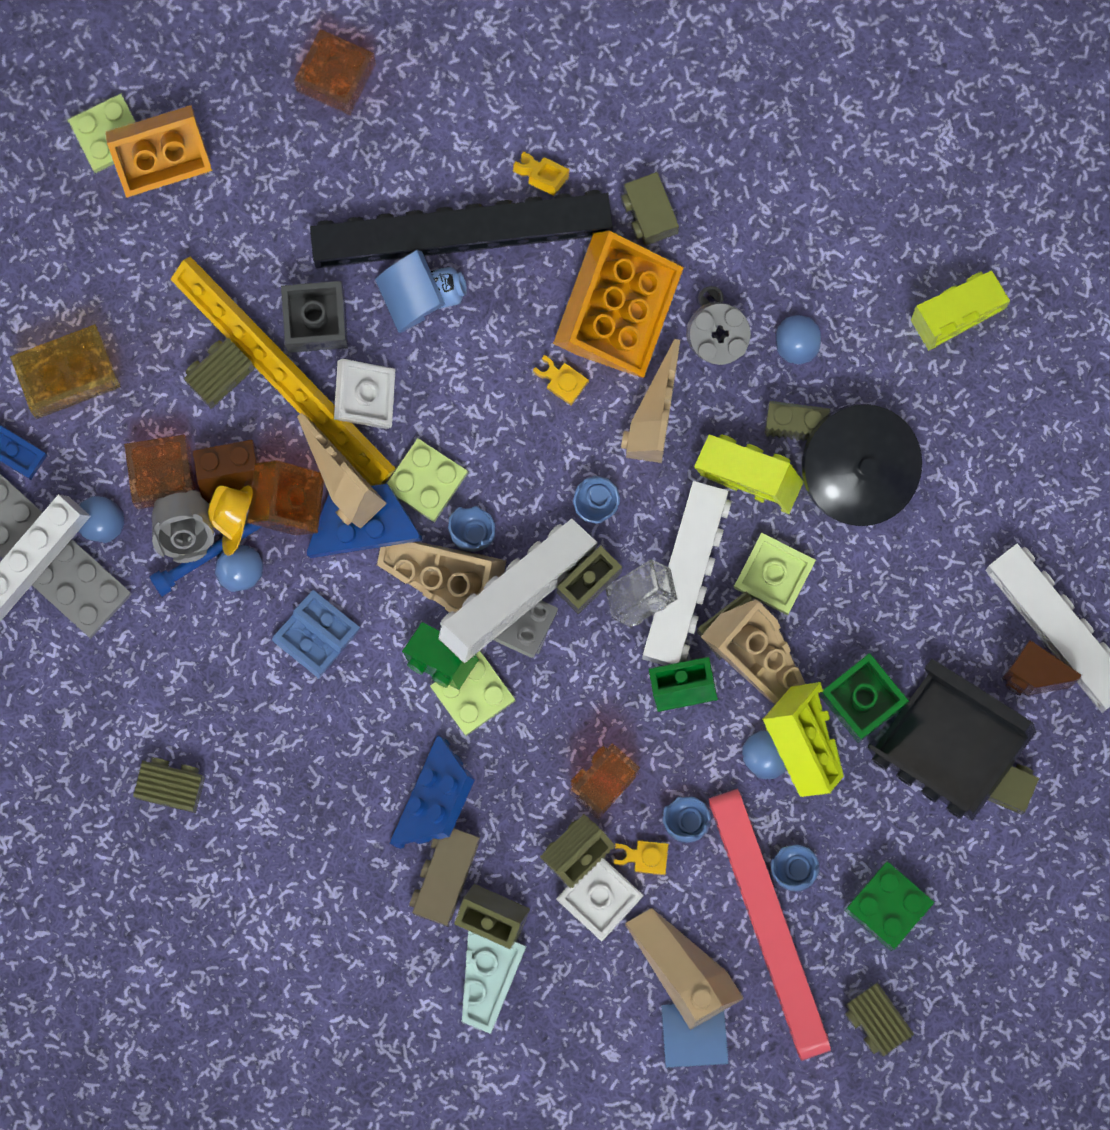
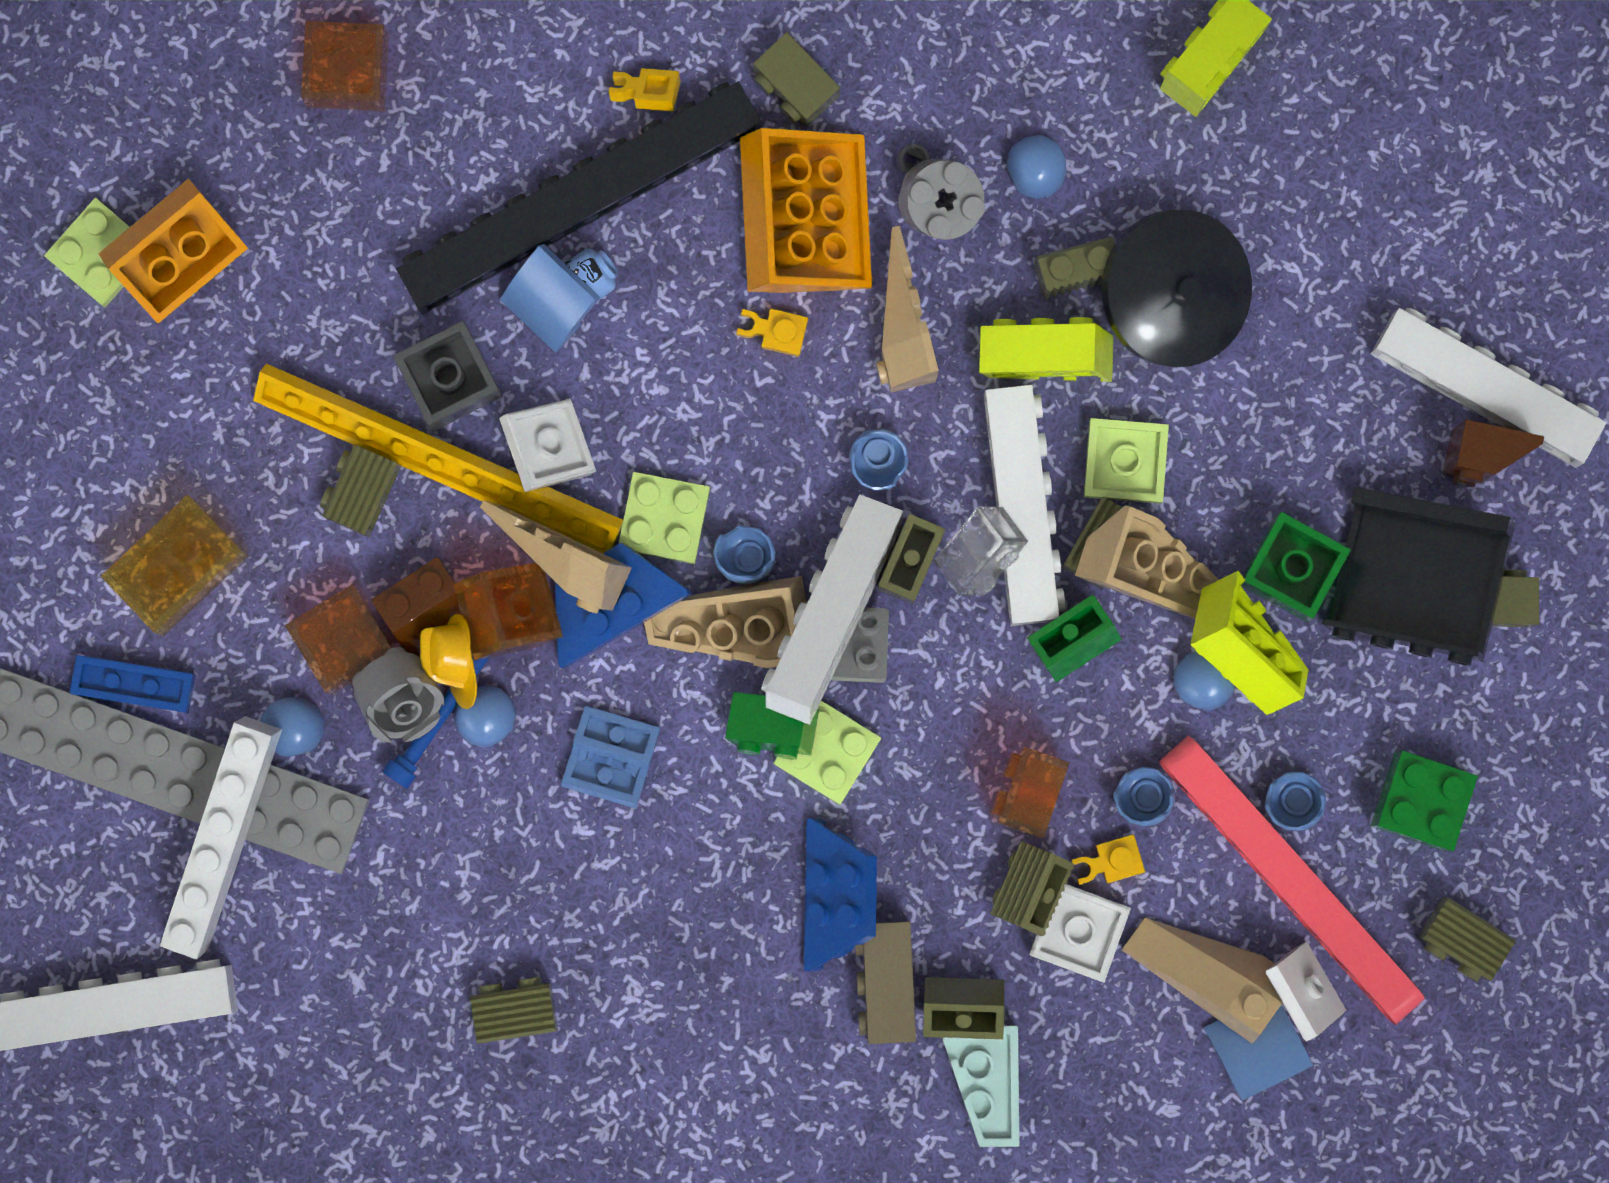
camera: 25 degrees left, 5 degrees up
(745, 1007) = (1305, 991): none -> white plate

